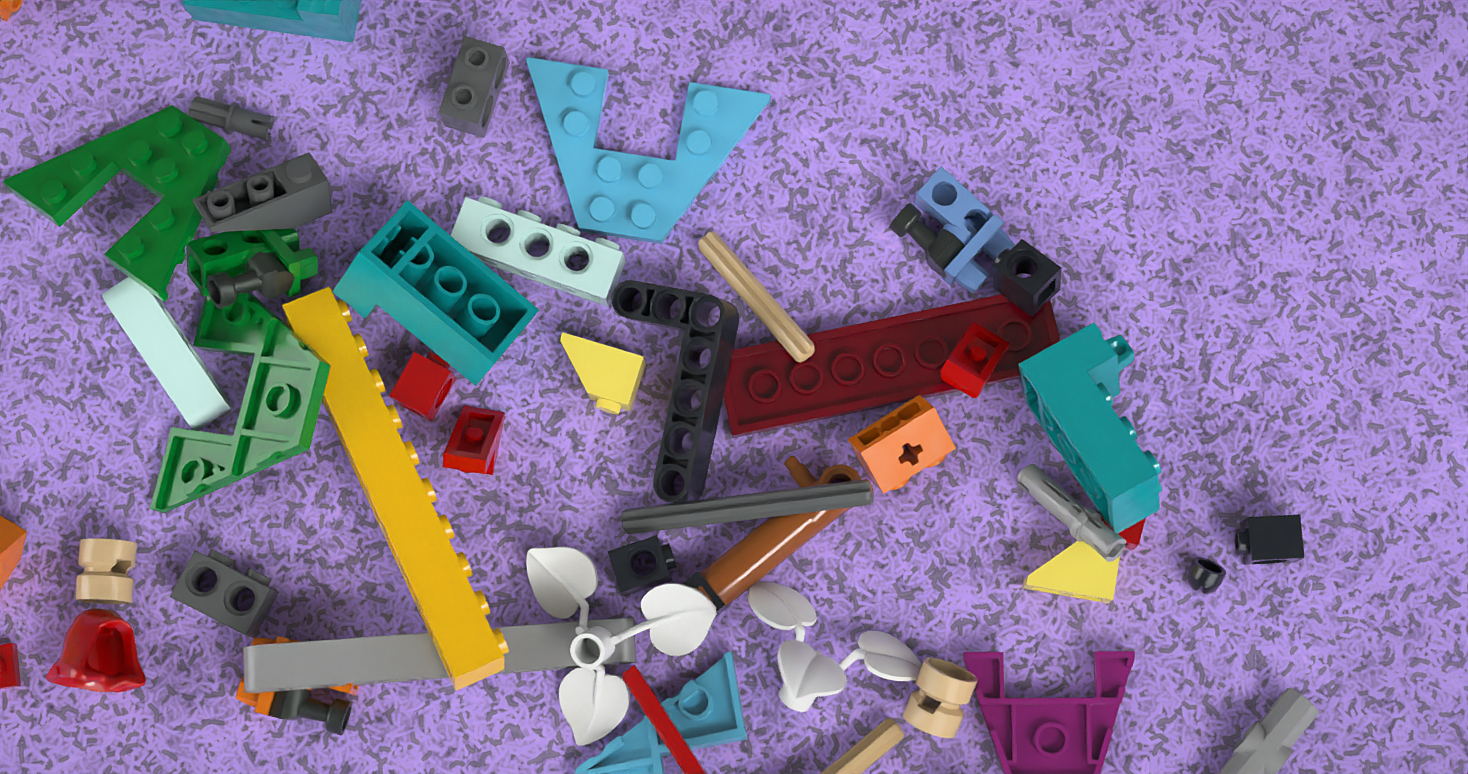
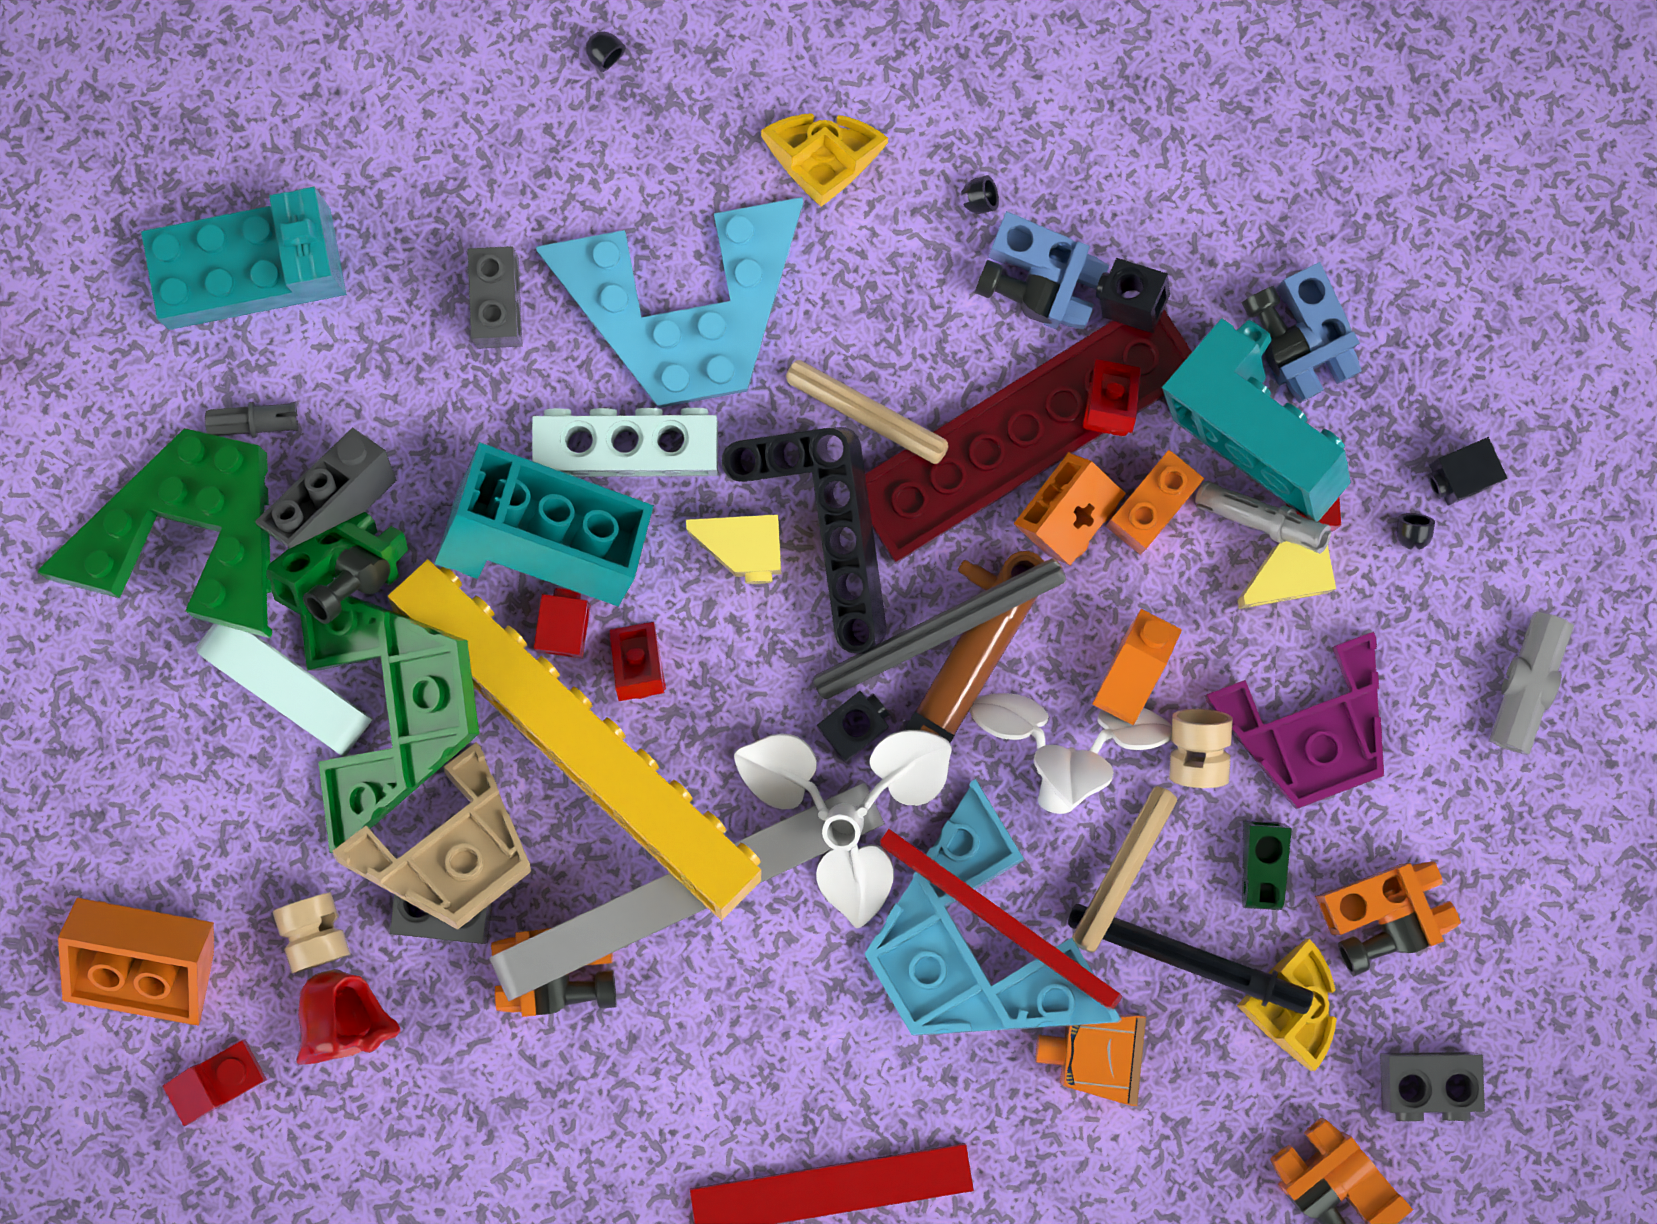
camera: 30 degrees left, 5 degrees up
(251, 557) = (458, 864): none -> tan wing
(802, 64) = (821, 153): none -> yellow brick
(909, 604) = (1137, 666): none -> orange slope
(926, 147) = (981, 195): none -> black hinge
(979, 465) = (1154, 502): none -> orange brick
(1179, 374) = (1316, 339): none -> medium blue hips

